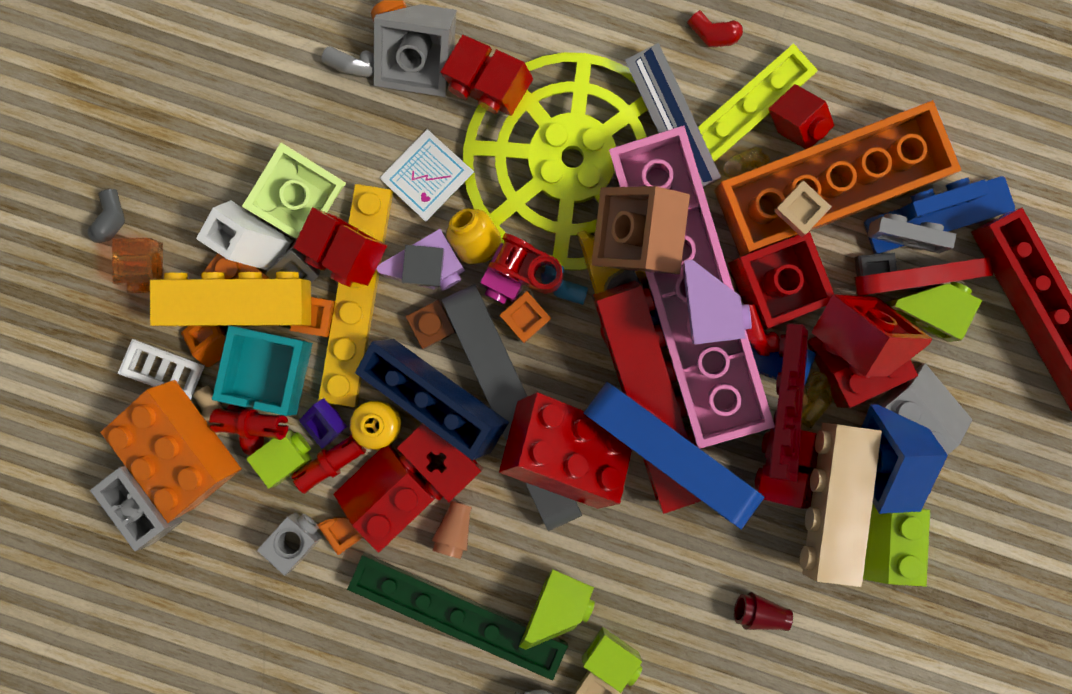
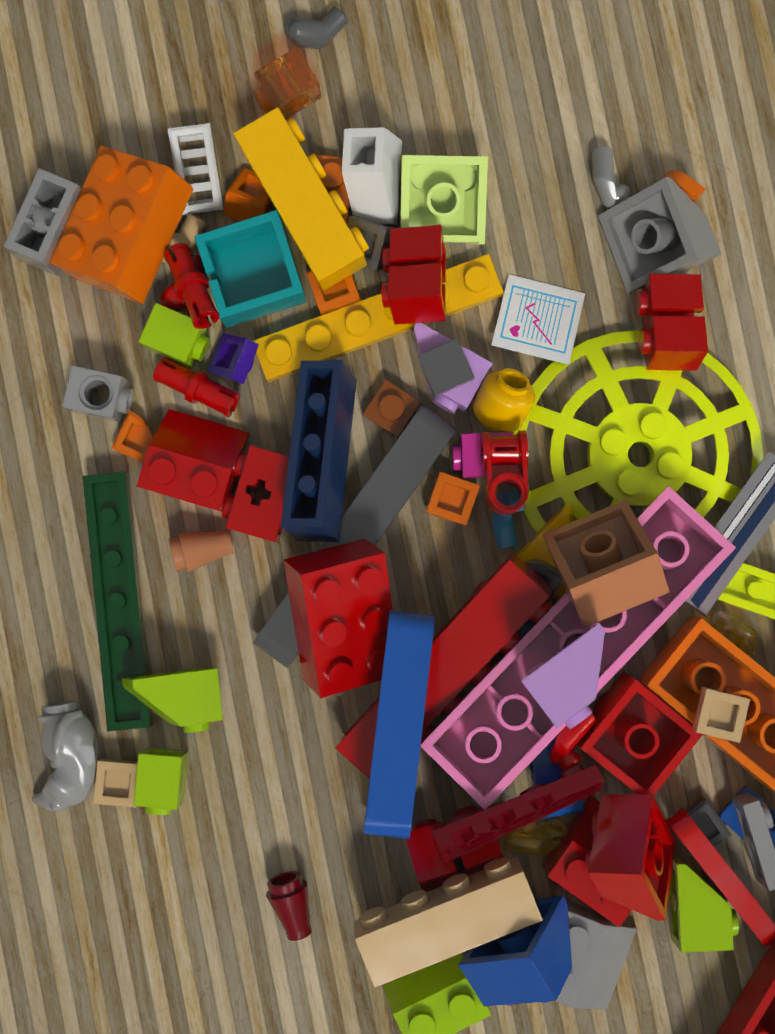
camera: 60 degrees right, 0 degrees up
(388, 421) = (275, 415): yellow head -> none

